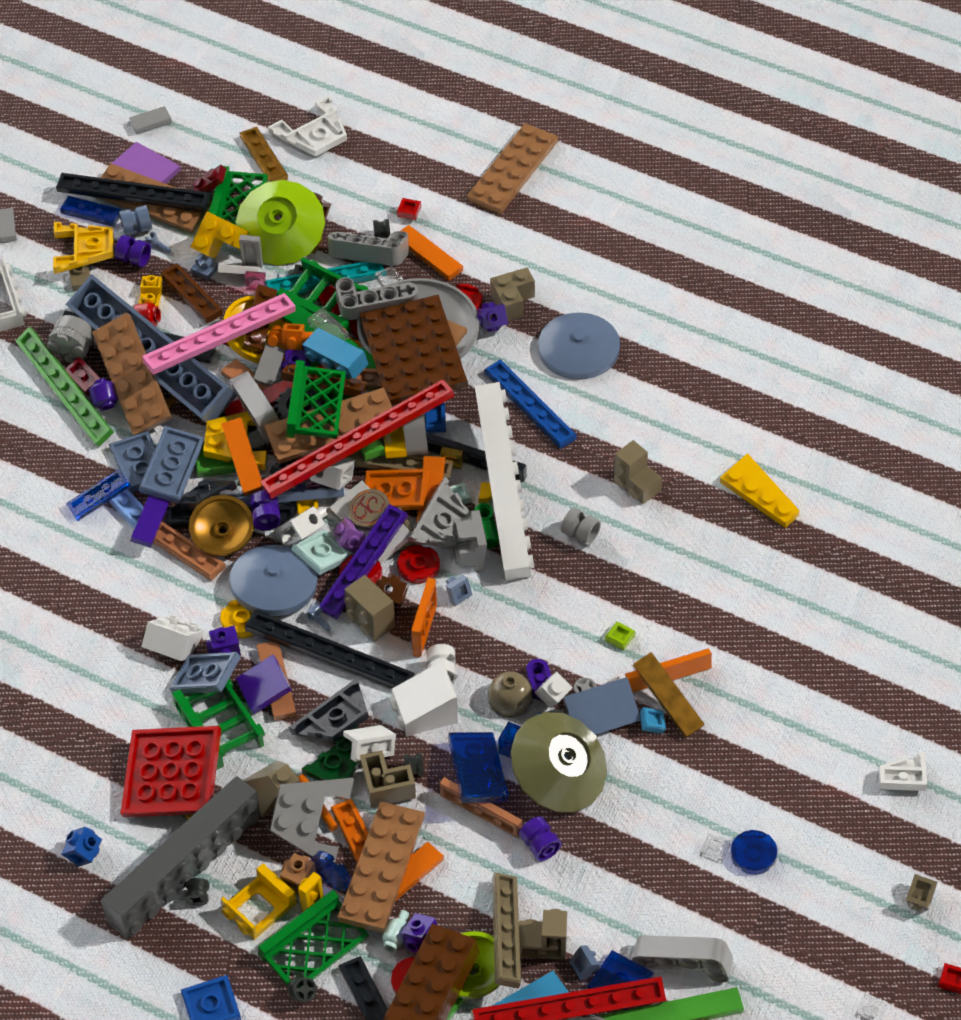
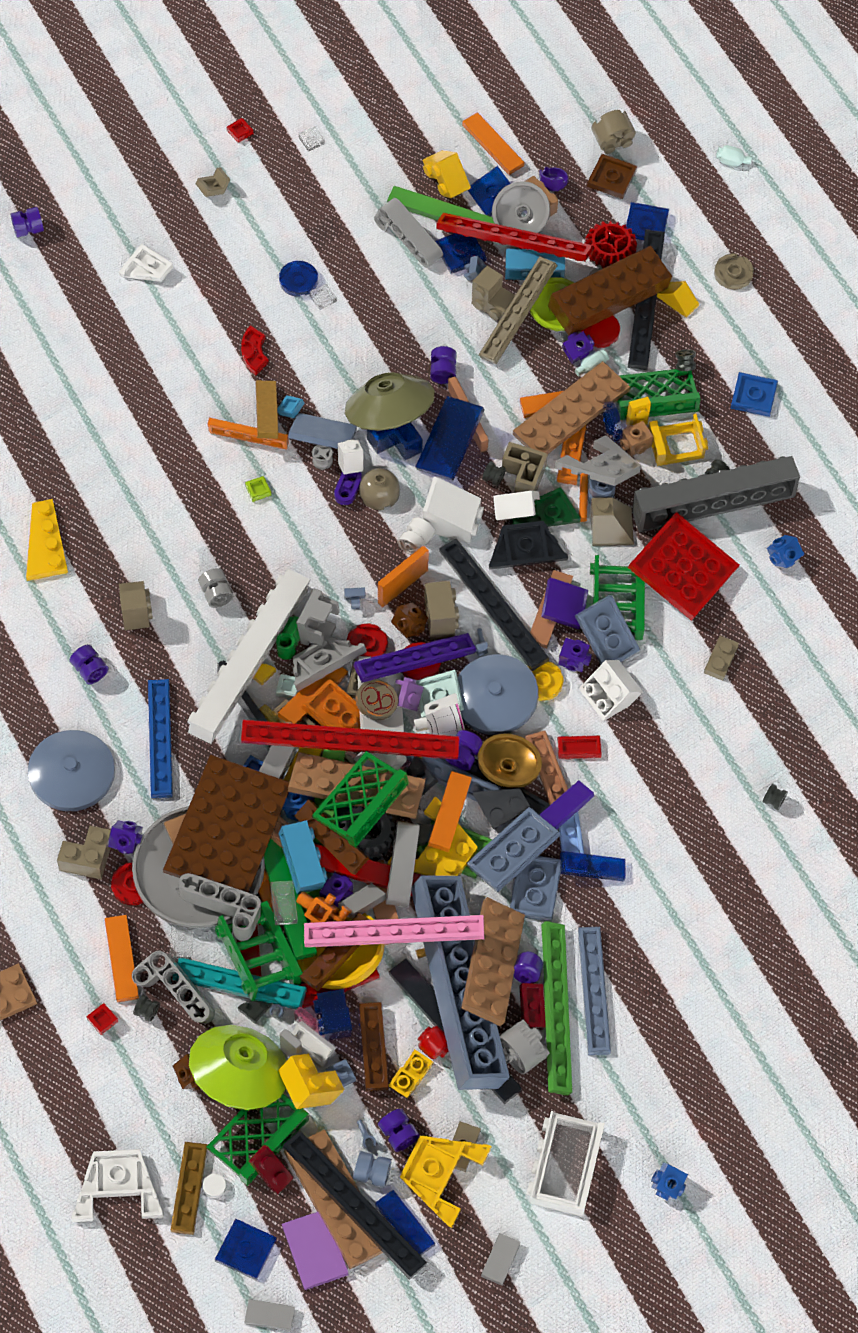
camera: 150 degrees left, 10 degrees up
(42, 418) = (594, 991): none -> sand blue tile
(89, 725) = (721, 658): none -> dark tan plate
(172, 583) = (579, 747): none -> red tile
(195, 144) = (245, 1249): none -> clear blue tile
(228, 280) = (334, 1015): none -> clear blue brick
(246, 164) = (214, 1185): none -> white tile
(632, 414) = (89, 664): none -> dark purple wheel
(735, 756) = (252, 350): none -> red tile

